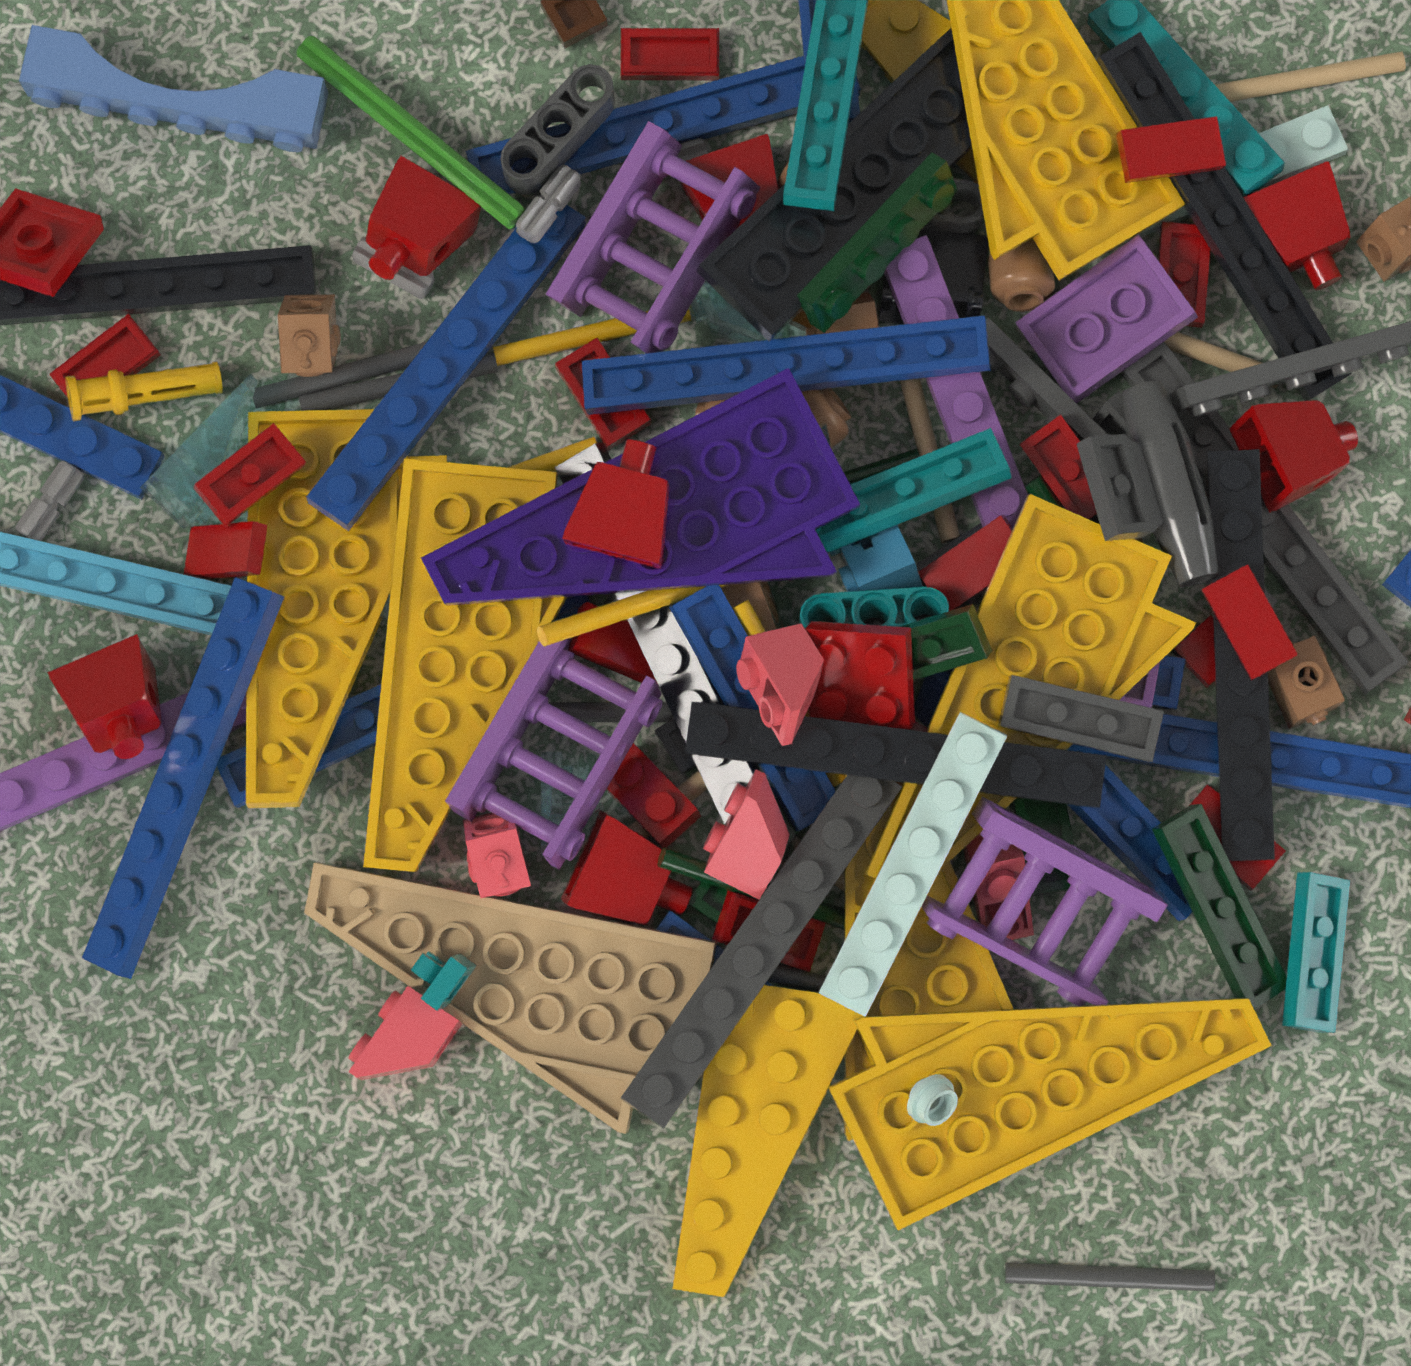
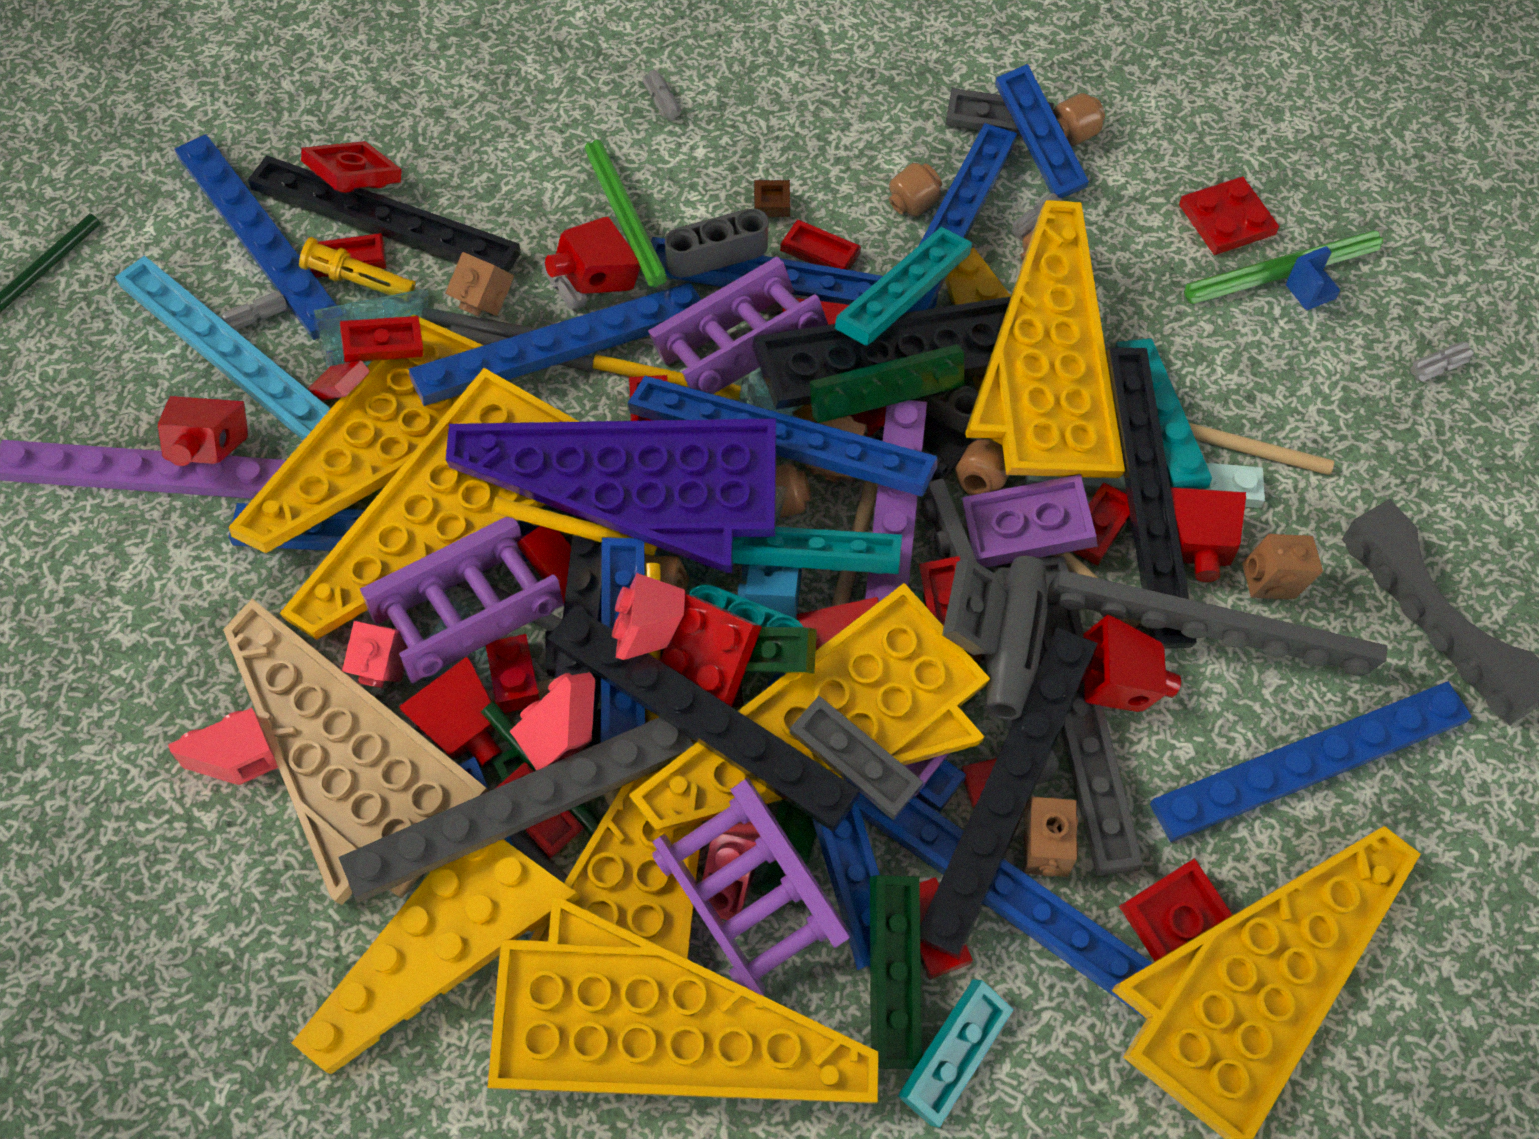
camera: 25 degrees right, 20 degrees down
(182, 778) = (194, 506): blue plate -> none
(271, 107) = (548, 164): medium blue arch -> none
(444, 977) = (278, 714): teal tile -> none
(542, 210) = (691, 280): light grey piece -> none
(623, 509) = (601, 448): red torso -> none
(912, 864) = (662, 797): light aqua plate -> none
(932, 1100) = (572, 998): light aqua plate -> none
(1171, 149) = (1131, 425): red tile -> none
(1249, 622) = (1027, 758): red tile -> none

